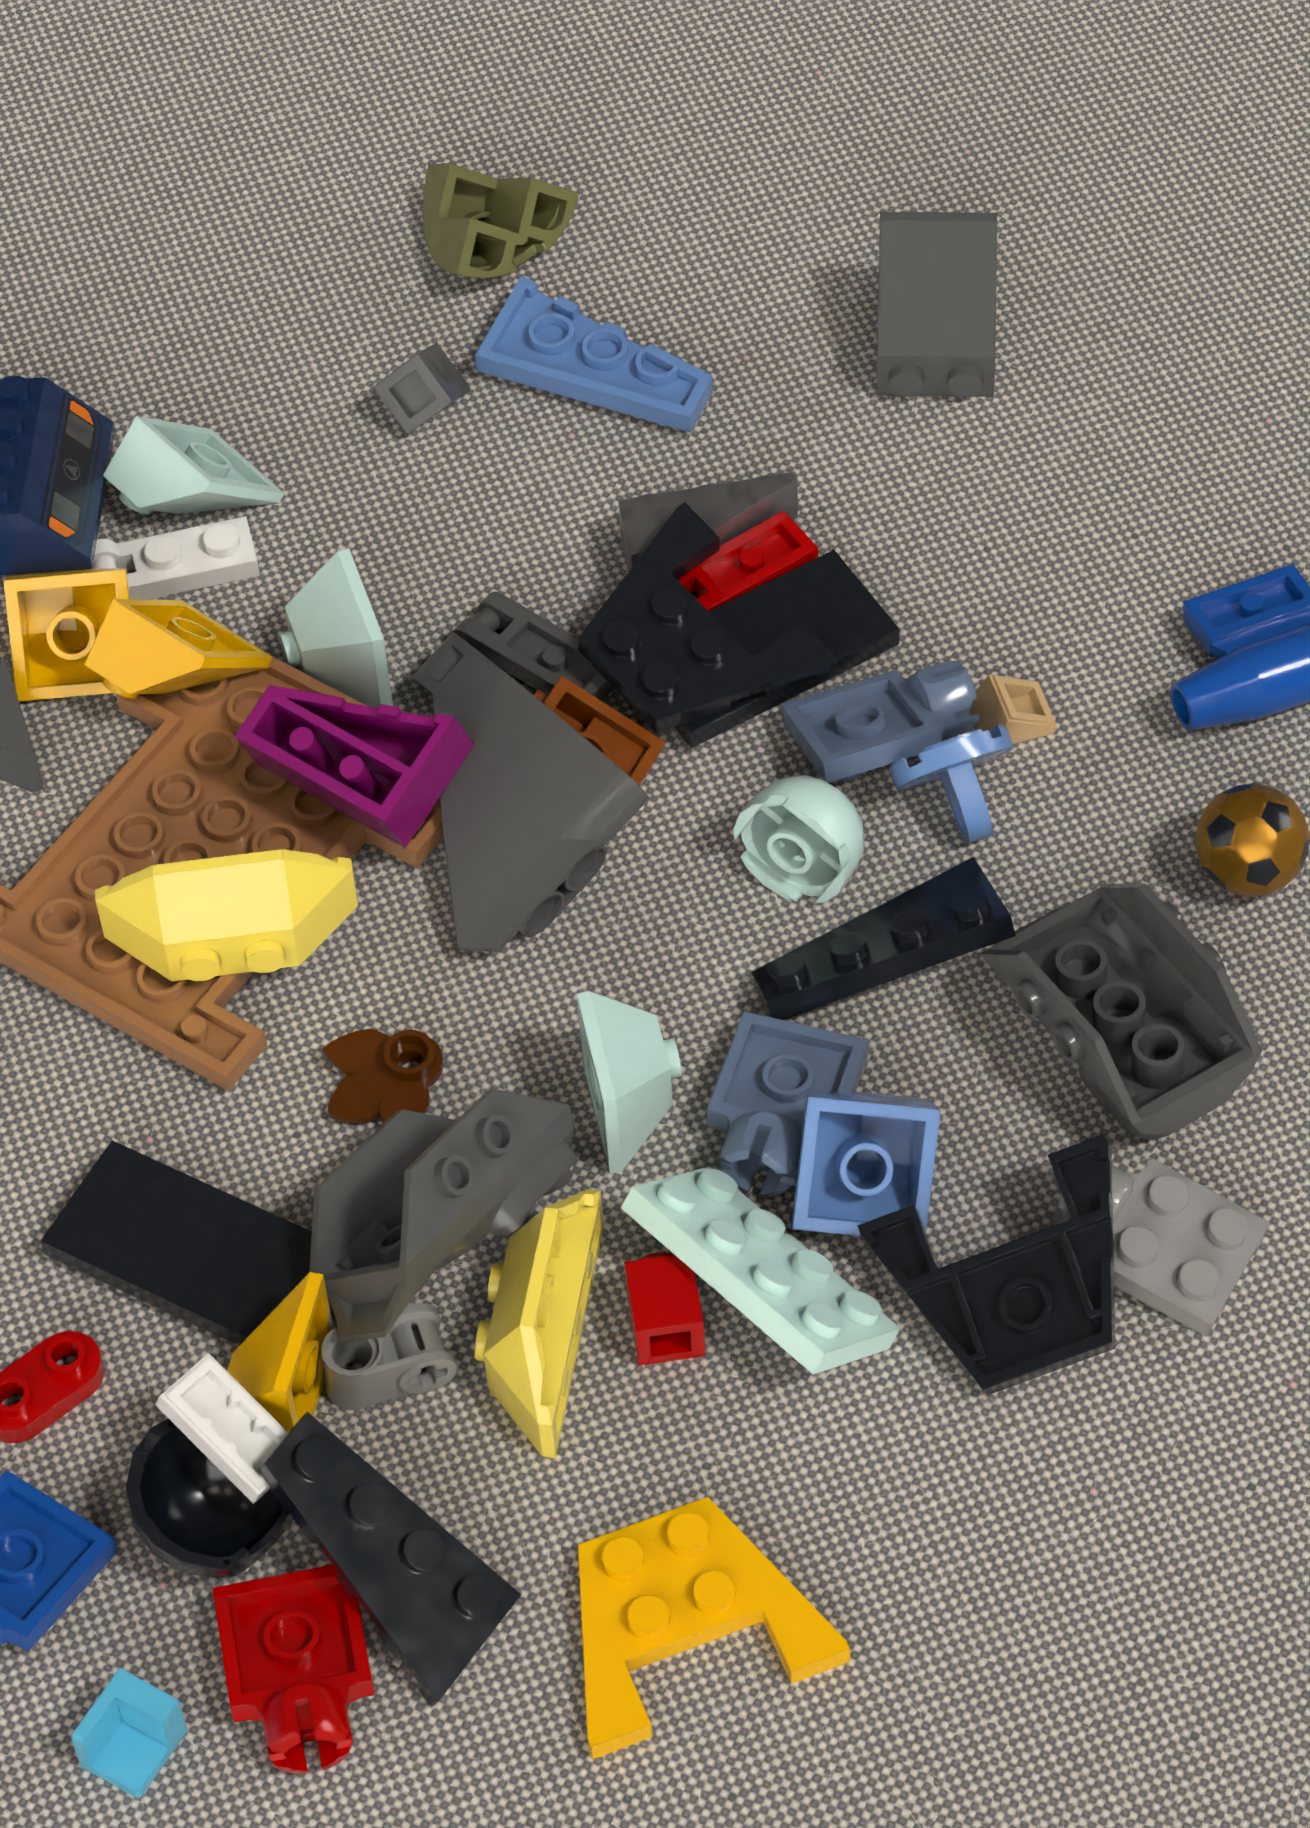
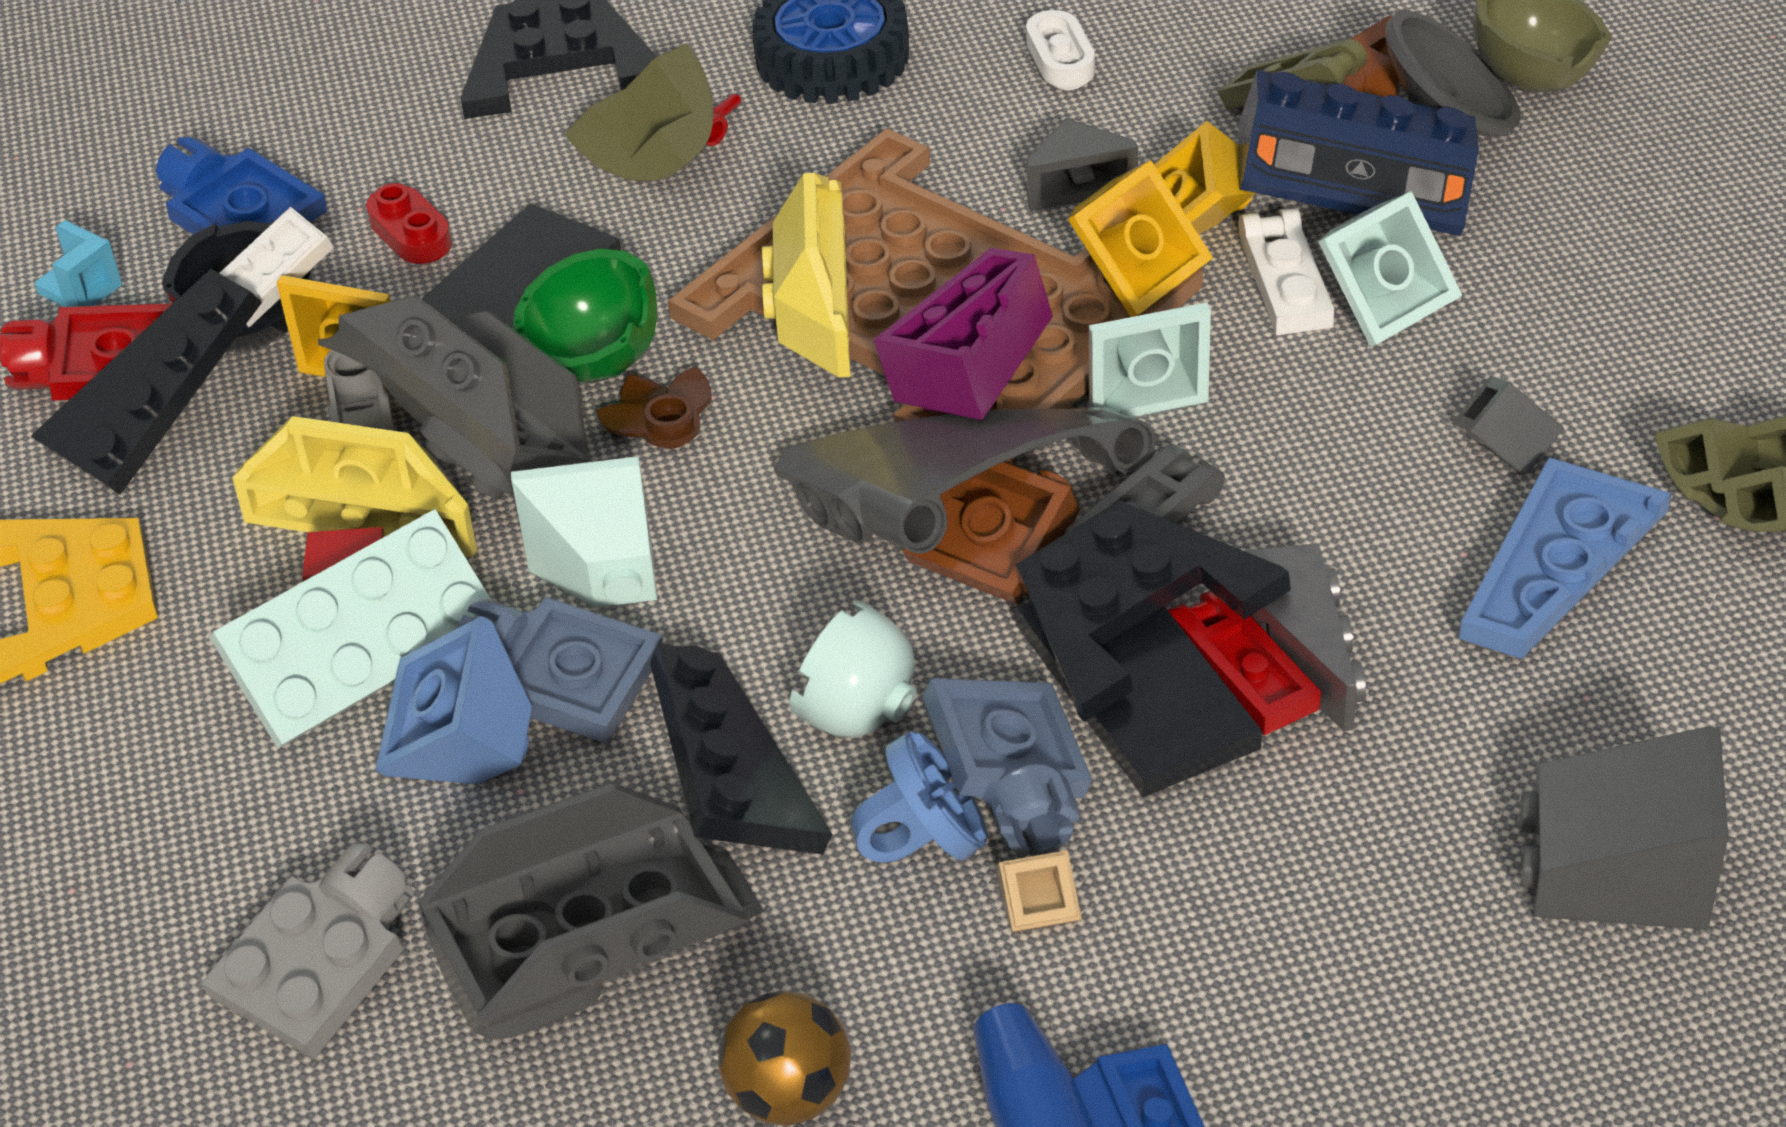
camera: 95 degrees right, 10 degrees down
(276, 1127) = (591, 313): none -> green cylinder
(1028, 1300) = (267, 815): black wing -> none

